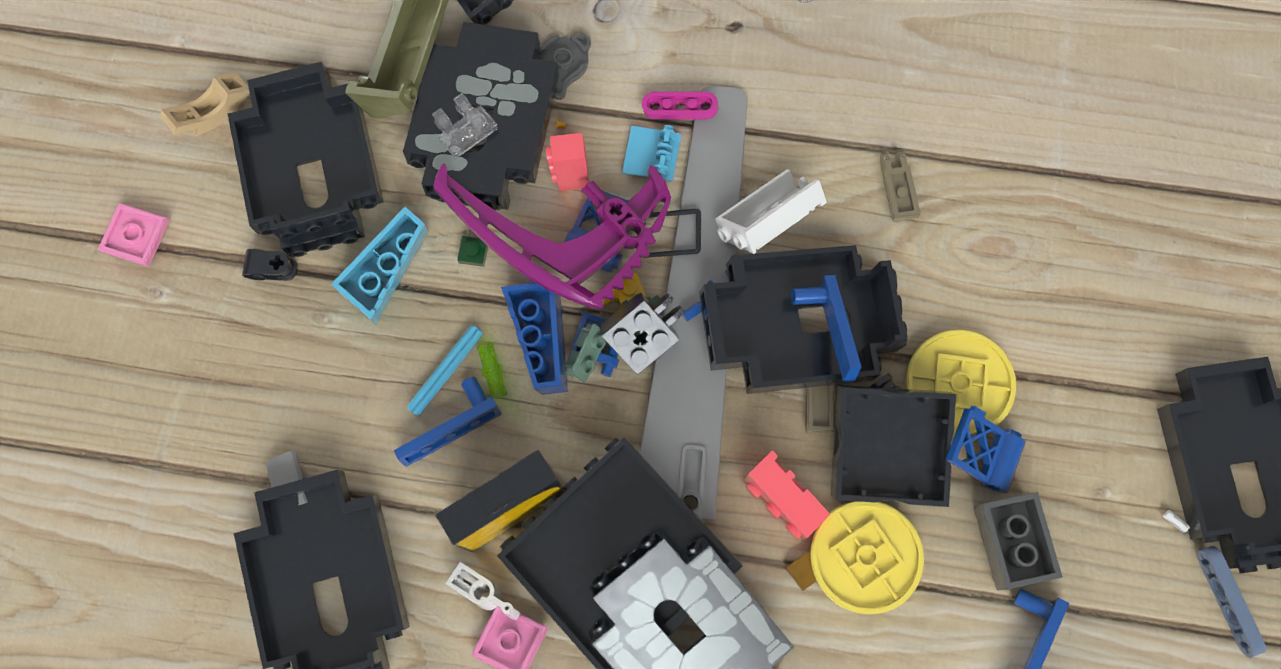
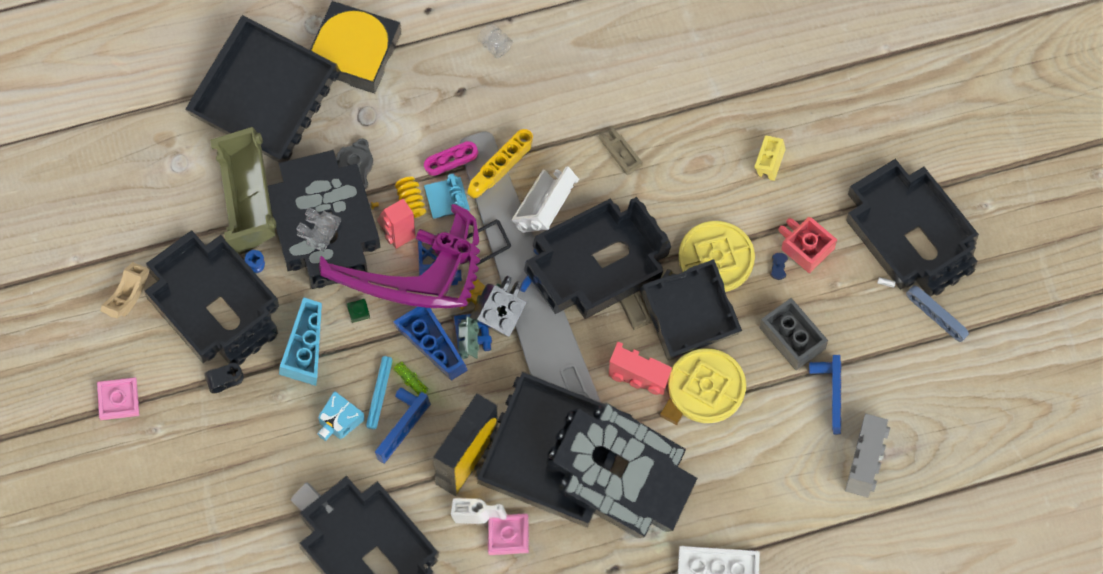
camera: 30 degrees left, 10 degrees down
(376, 381) = (339, 417): none -> medium azure torso
(383, 139) = (257, 265): none -> blue wheel
(603, 134) = (409, 191): none -> yellow piece
(745, 131) = (480, 183): none -> yellow piece
(837, 323) = (620, 248): blue piece -> none
(999, 458) = (761, 289): blue piece -> none
(1038, 432) = (778, 266): none -> dark blue piece
(1093, 279) = (770, 157): none -> light yellow hinge
(1103, 408) = (797, 243): none -> coral hinge

